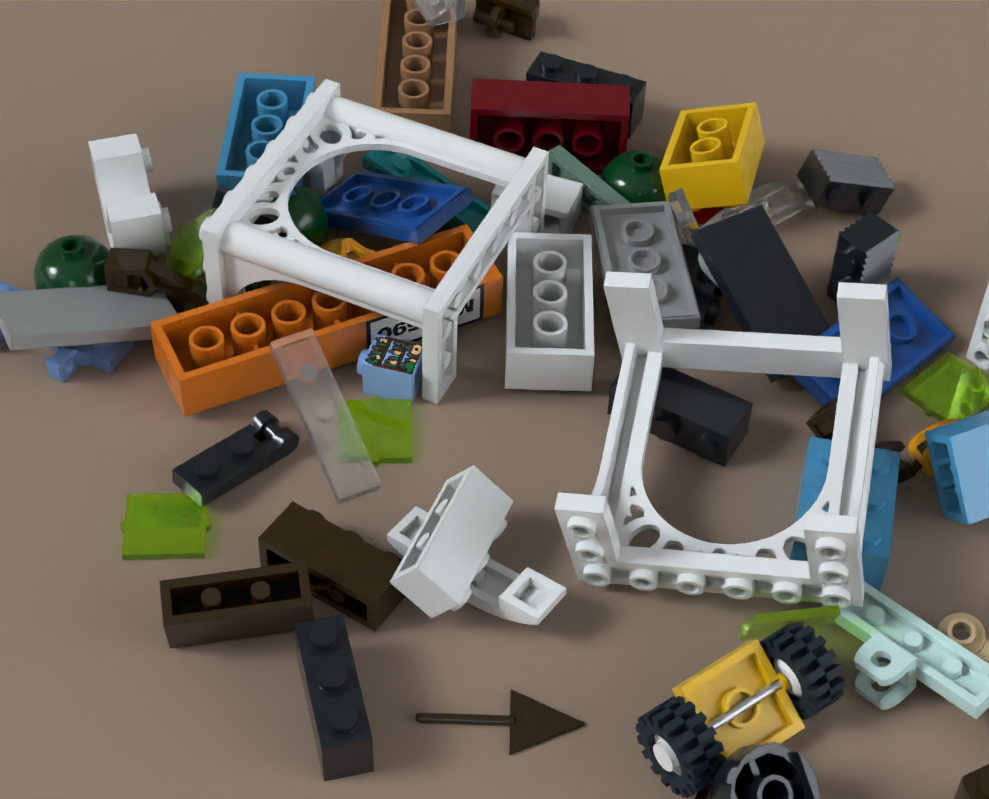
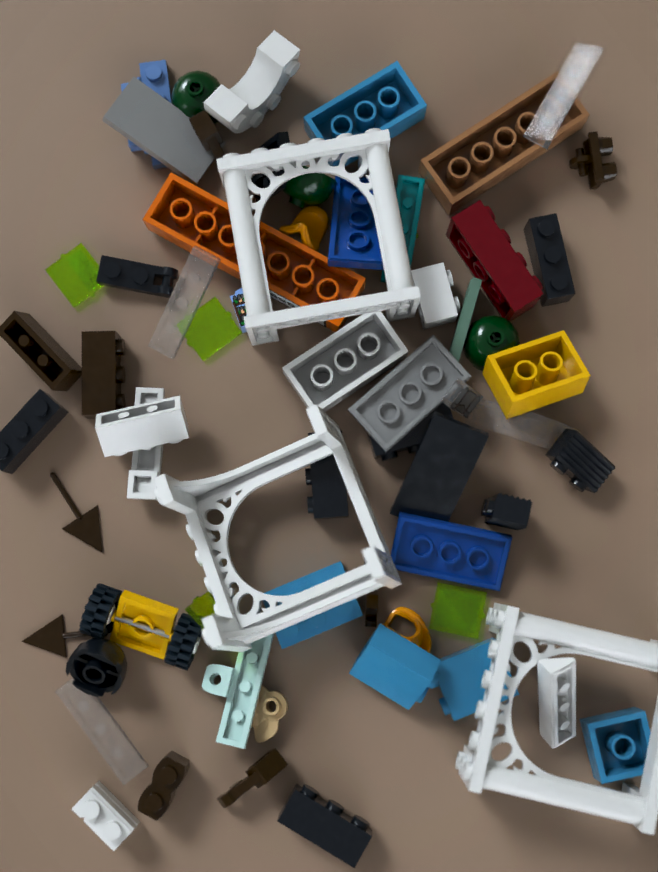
camera: 60 degrees right, 35 degrees up
(187, 249) = (255, 139): clear neon green piece -> none

